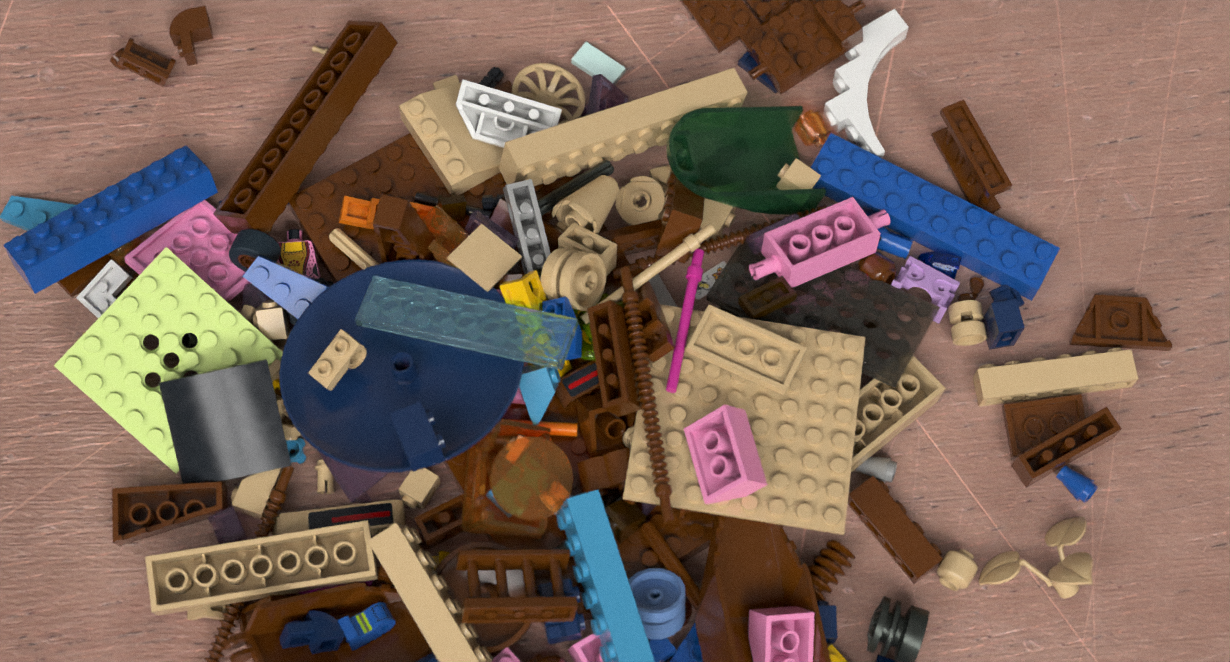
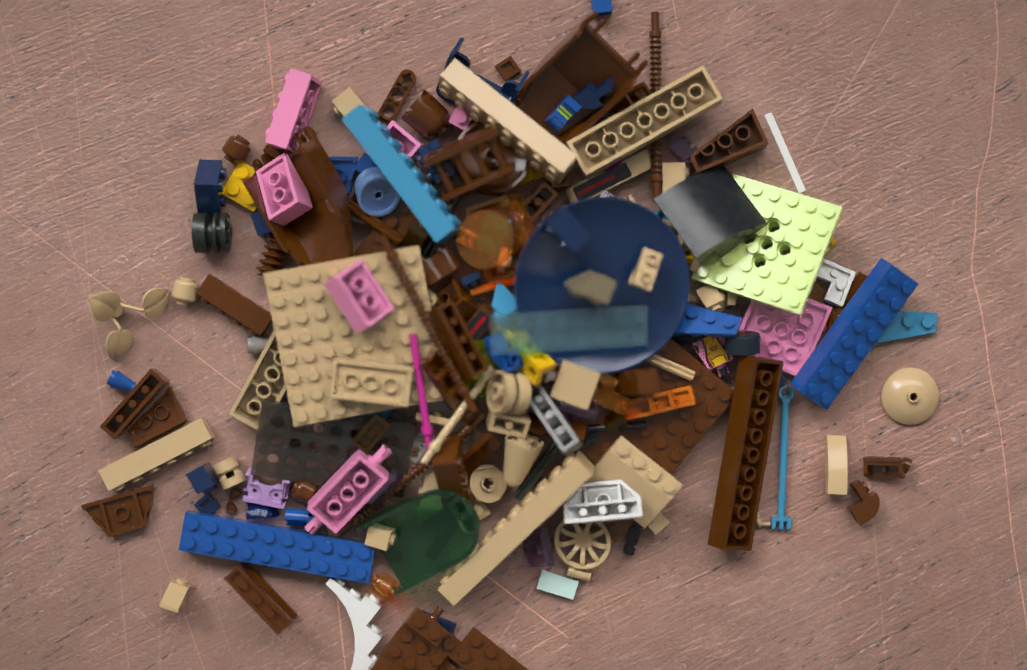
camera: 160 degrees right, 20 degrees up
(81, 147) = (897, 392): none -> tan dish
(97, 481) = (785, 153): none -> white sticker
(204, 84) = (836, 465): none -> tan slope
(296, 51) = (780, 518): none -> dark azure hinge
(414, 355) = (593, 285): none -> dark tan slope
(570, 443) = (472, 279): none -> dark blue plate
(575, 70) = (583, 574): none -> tan pin
(673, 291) = (435, 418): none -> tan plate
(1079, 198) = (176, 595): none -> tan slope

